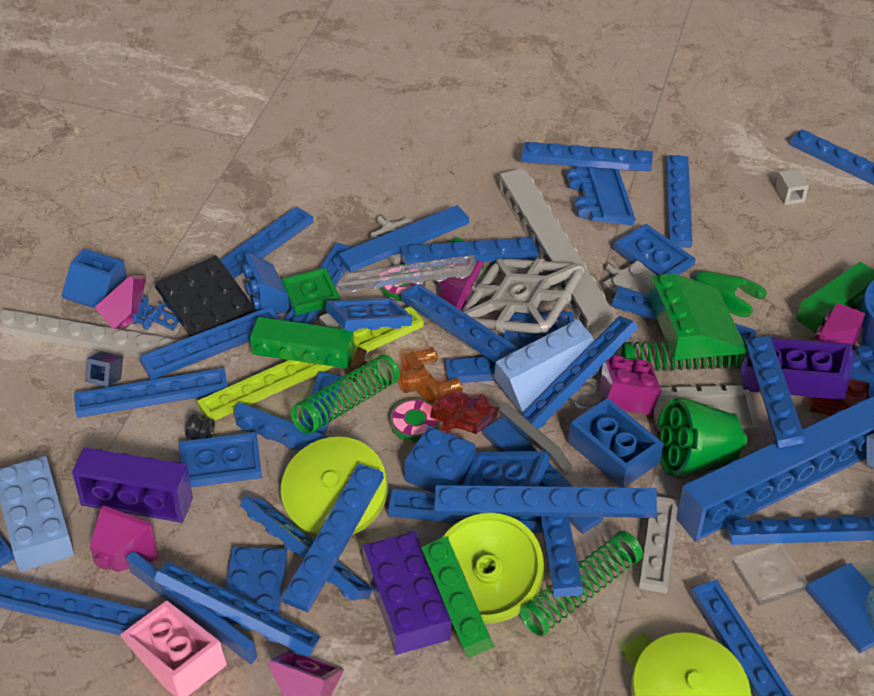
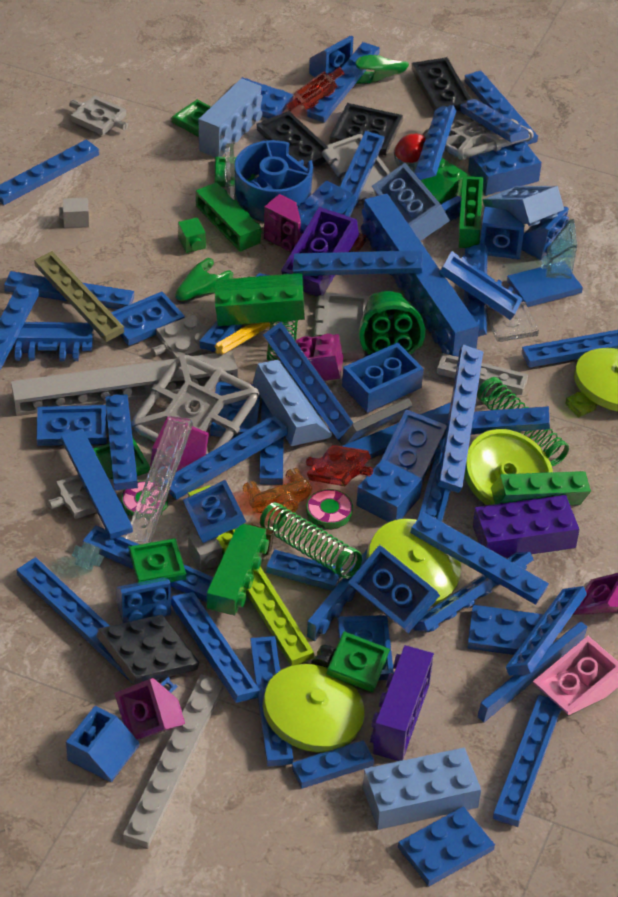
camera: 85 degrees left, 0 degrees up
(70, 438) = (332, 764): none -> blue plate
(104, 368) = (239, 732): dark blue brick -> none
(119, 535) = (466, 715): magenta slope -> none
(138, 418) = (313, 708): none -> lime dish
(190, 445) = (358, 661): none -> green tile
(272, 457) = (394, 589): none -> blue brick
(317, 247) = (87, 555): none -> clear light blue gear
(488, 218) = (60, 420): none -> blue plate
(632, 313) = (240, 337): none -> yellow axle
(657, 197) = (79, 296): none -> olive plate
(795, 272) = (191, 235): none -> green brick
(799, 519) = (481, 285): none -> blue hinge

